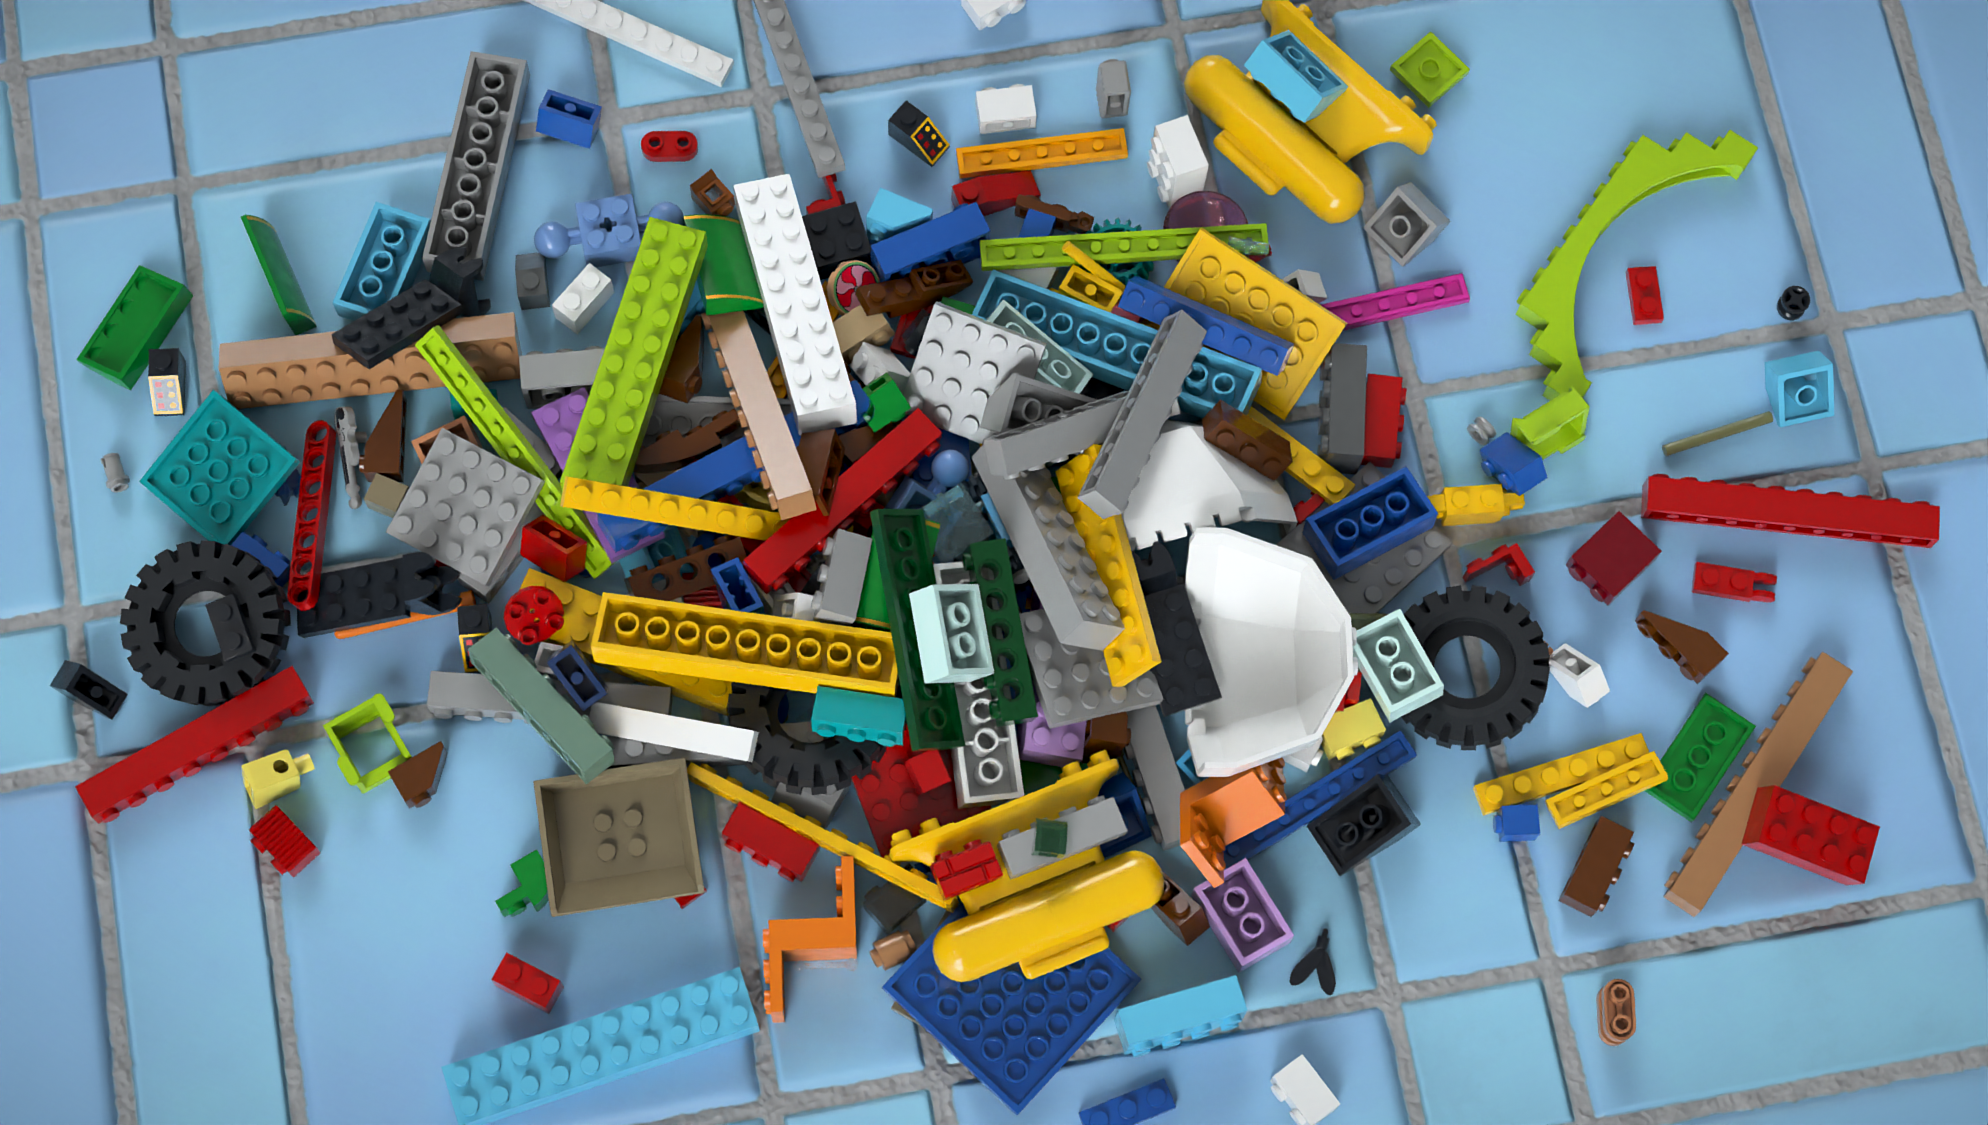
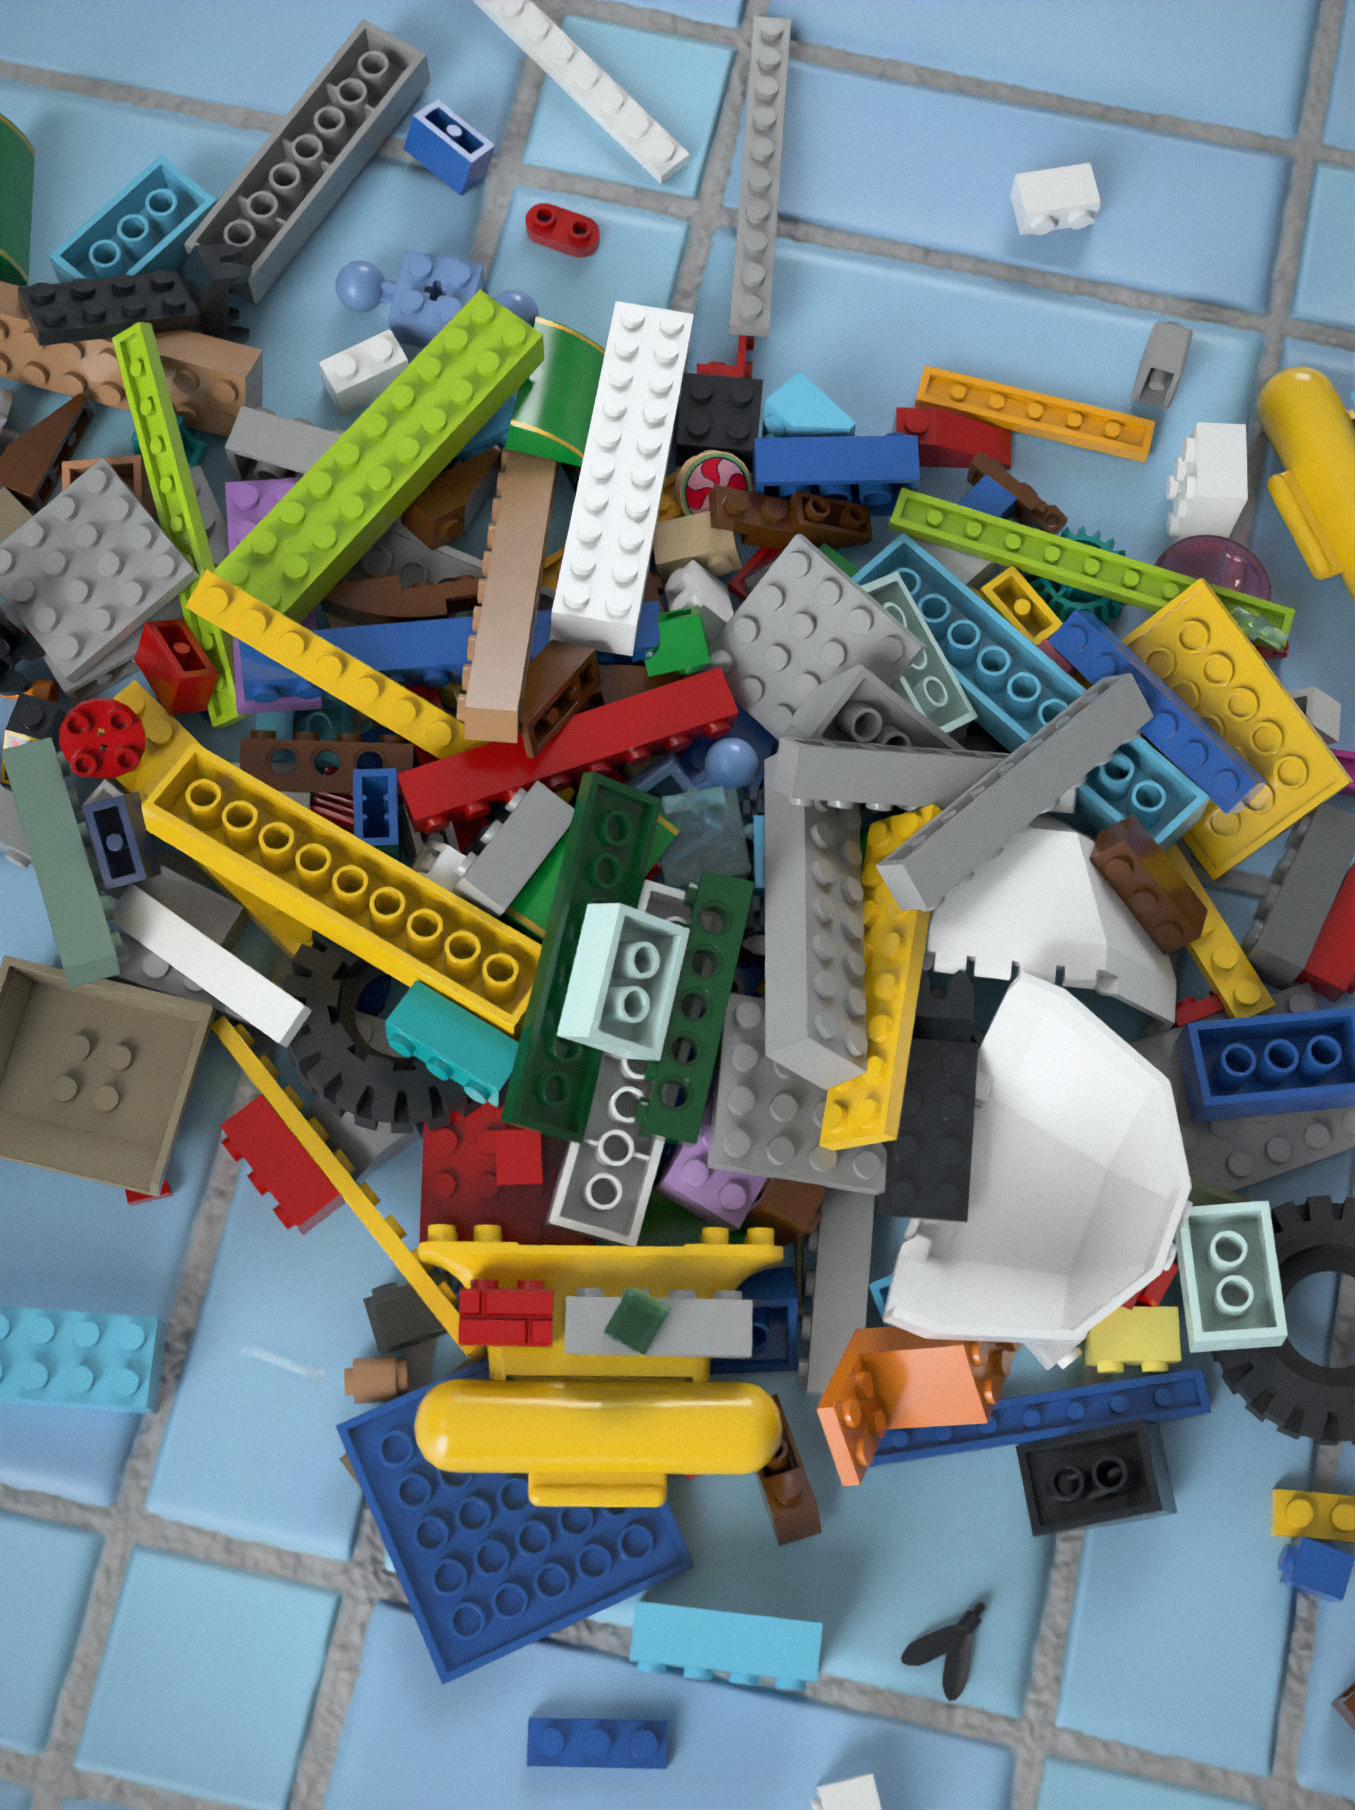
camera: 25 degrees right, 0 degrees up
(532, 281) = (312, 328): dark grey slope -> none
(712, 195) = (586, 306): dark orange window -> none
(810, 940) = (269, 1320): orange bracket -> none
(917, 133) = (883, 329): black slope -> none
(1005, 109) = (1010, 341): white brick -> none
(1089, 264) = (1034, 573): yellow bar -> none
(1243, 916) = (873, 1538): lavender brick -> none

